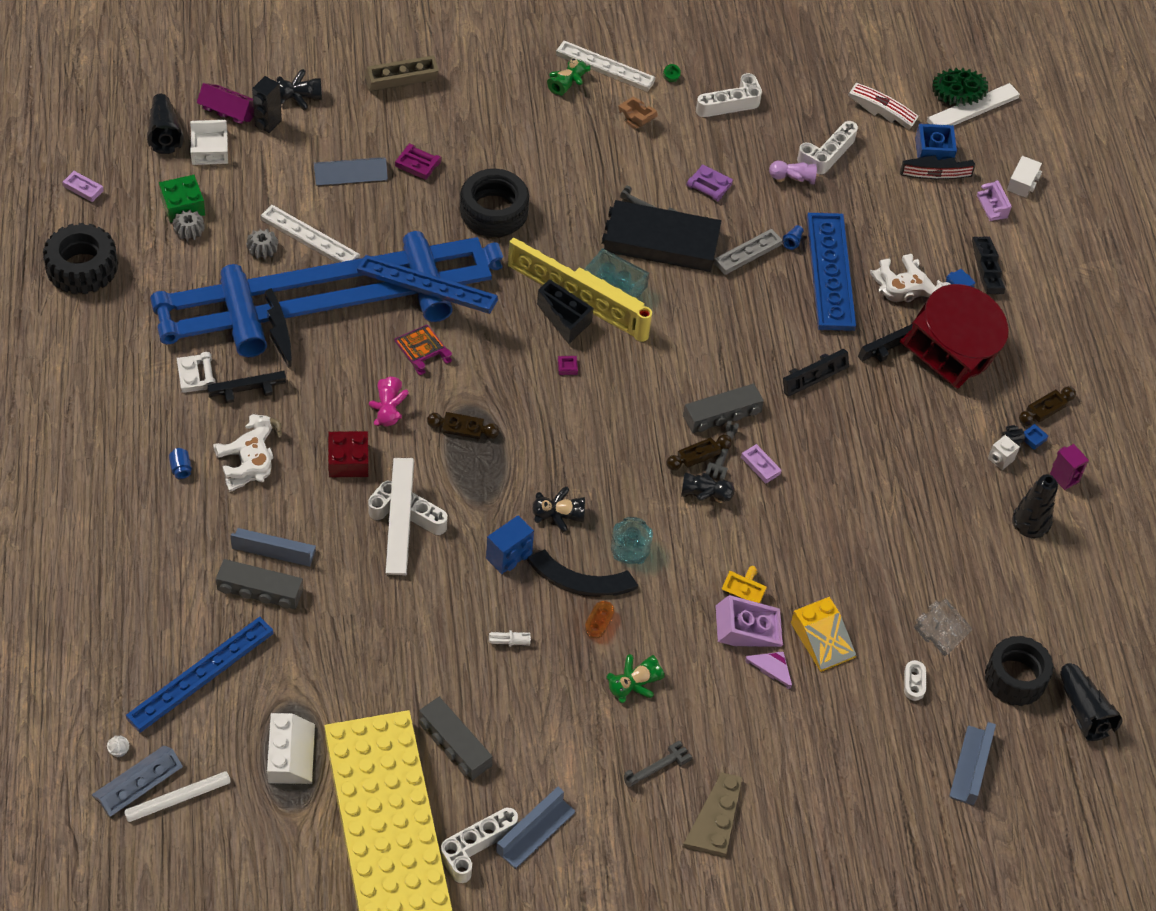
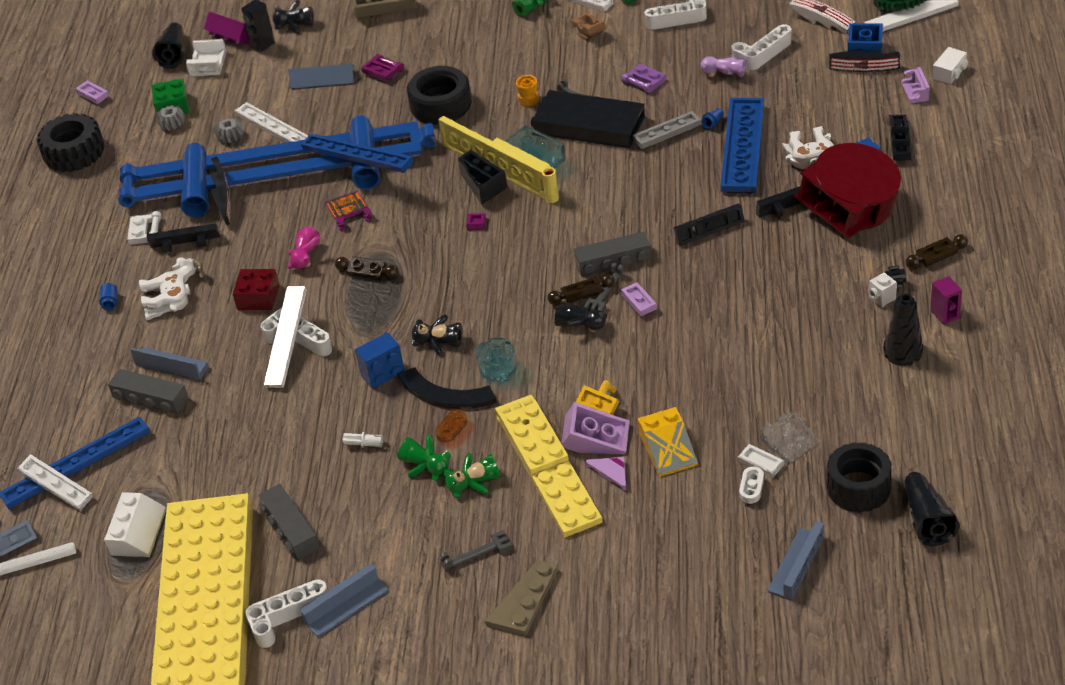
camera: 20 degrees right, 10 degrees down
(187, 701) = (55, 482): none -> white tile
(570, 654) = (424, 458): none -> green piece
(589, 198) = (527, 90): none -> light orange wheel
(707, 661) = (548, 465): none -> light yellow hinge
(917, 650) = (755, 457): none -> white tile
(1035, 436) = (918, 277): blue plate -> none

